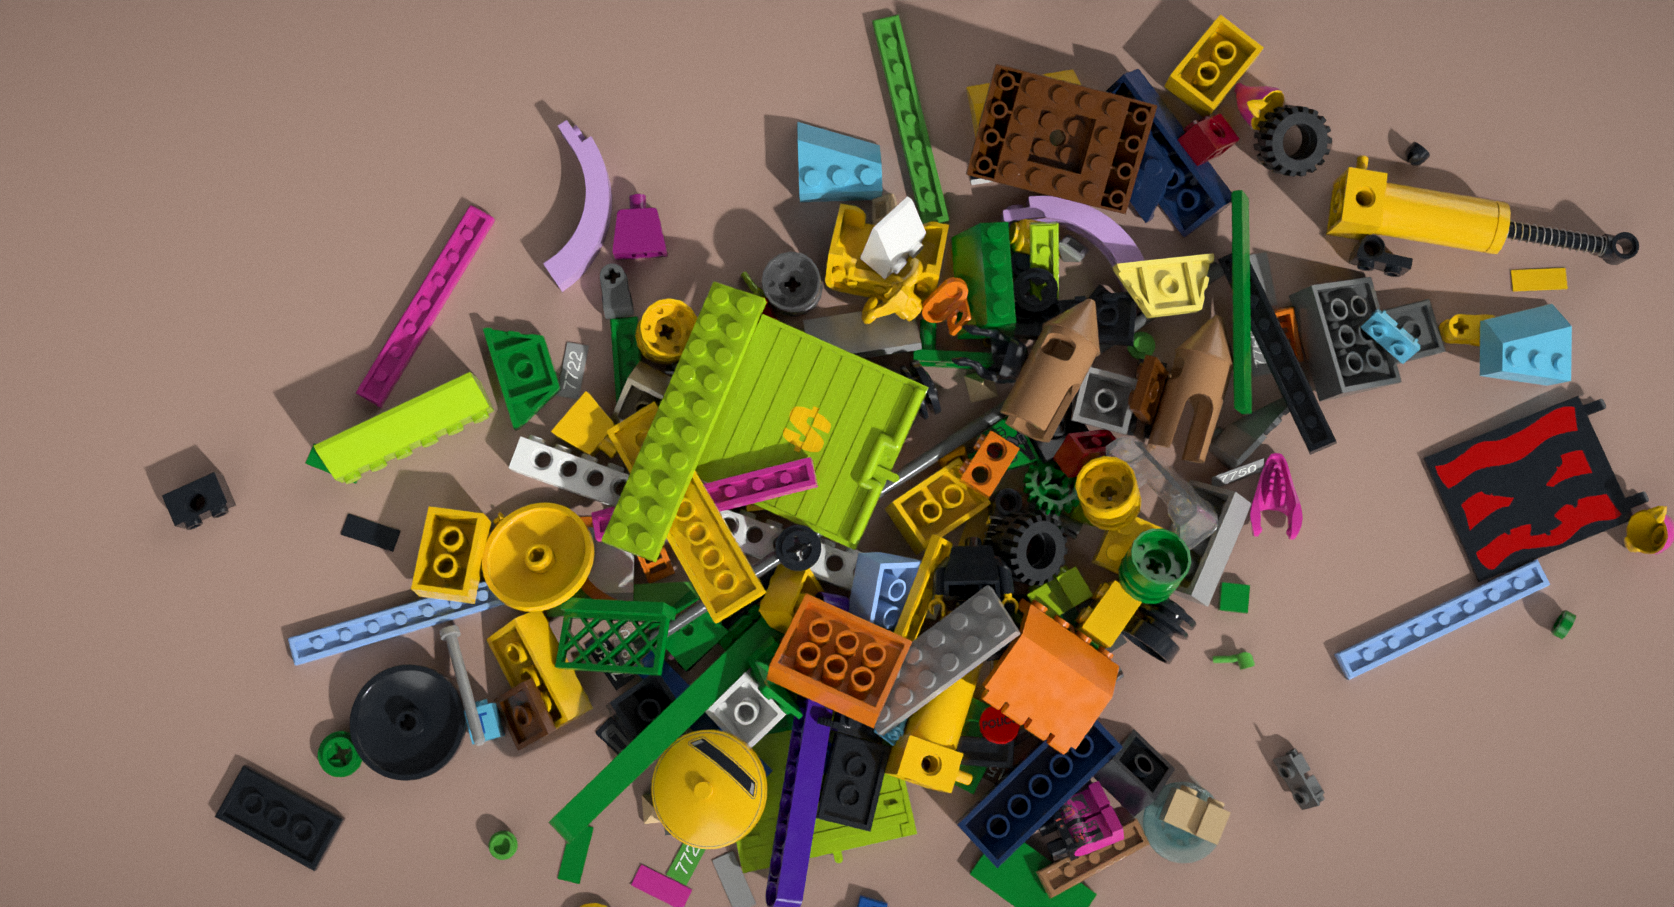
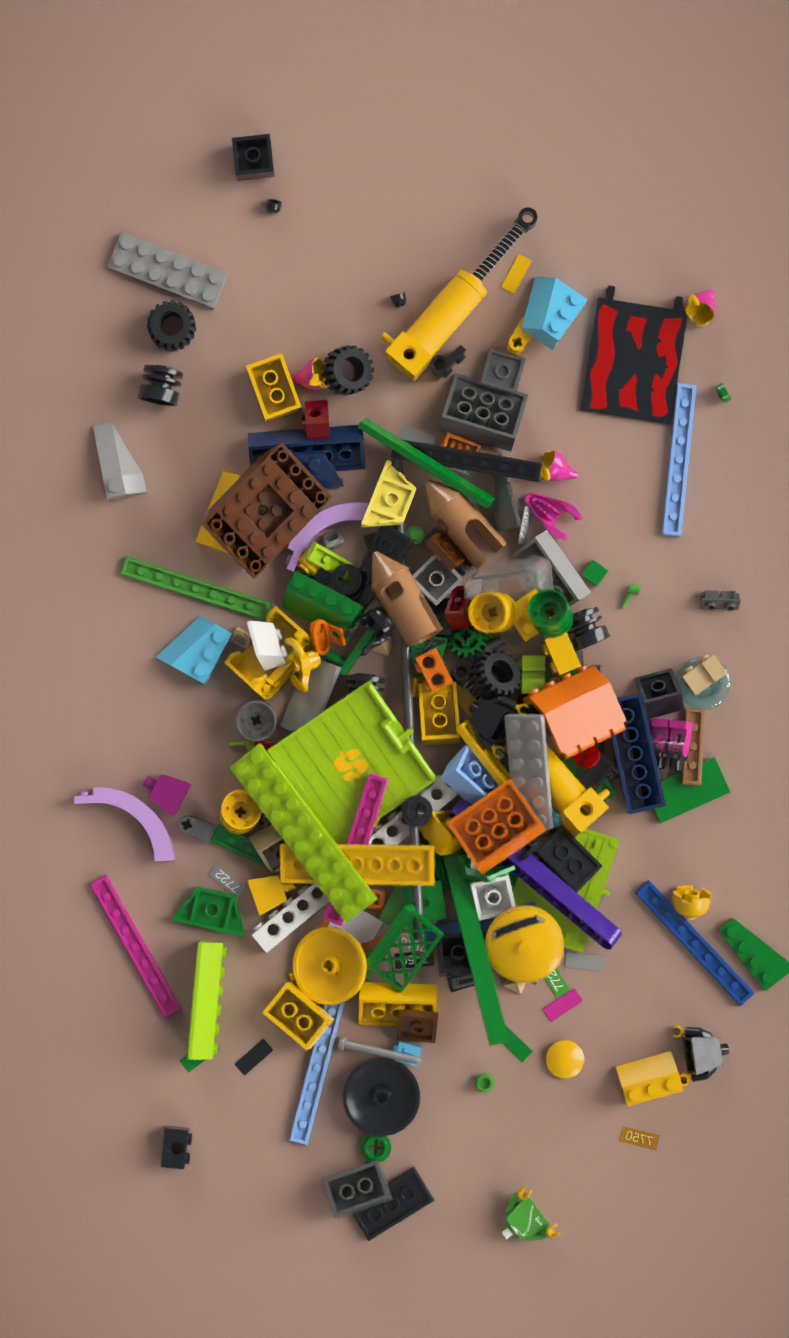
camera: 60 degrees left, 5 degrees up
(270, 762) = (357, 1189): none -> dark grey brick
(1335, 469) = (555, 467): none -> dark pink hat
(1395, 341) = (506, 384): medium azure hinge -> none

